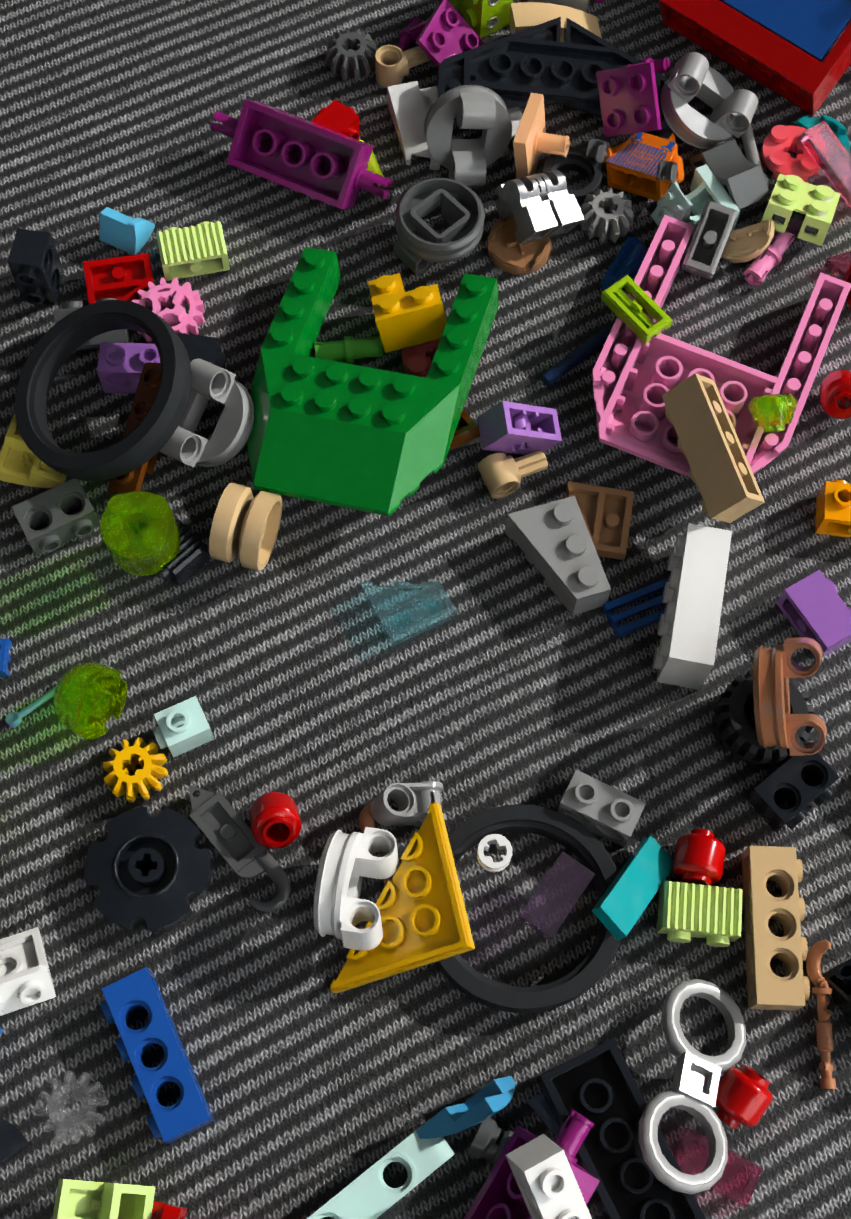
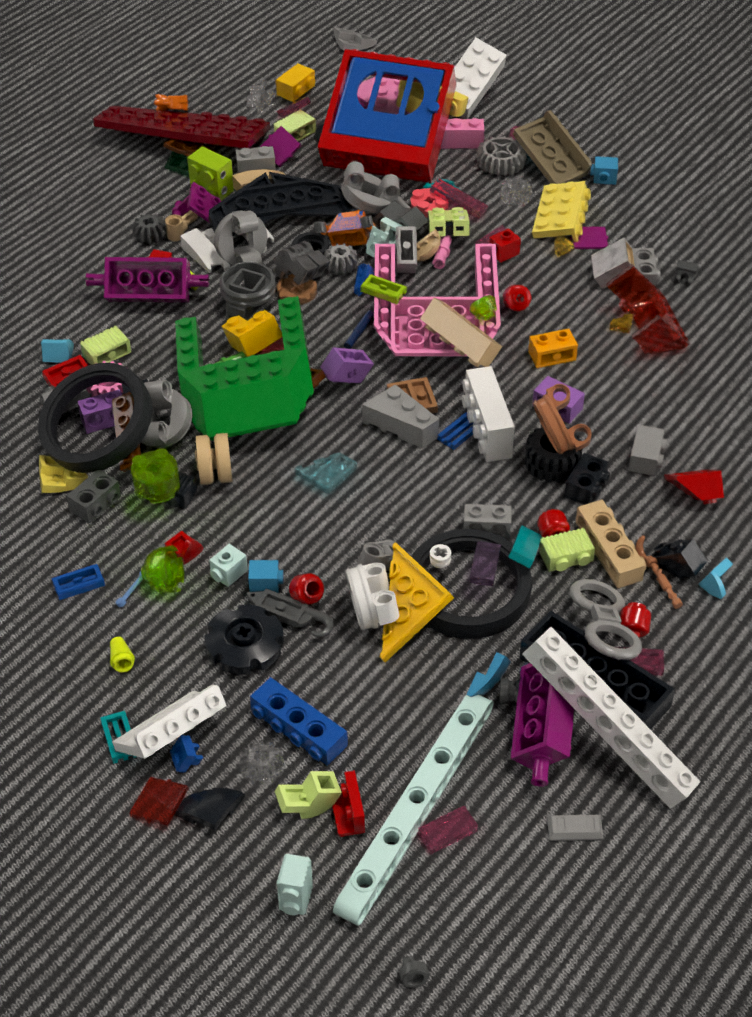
camera: 20 degrees left, 20 degrees down
(36, 266) = (16, 379): black brick -> none
(143, 658) = (187, 547): none -> red tile
(143, 778) = (209, 596): yellow gear -> none
(226, 771) = (265, 575): none -> dark azure brick
(504, 474) = (349, 393): tan axle -> none
(533, 140) = (280, 233): light nougat tile -> none
(630, 97) = (326, 196): magenta plate -> none

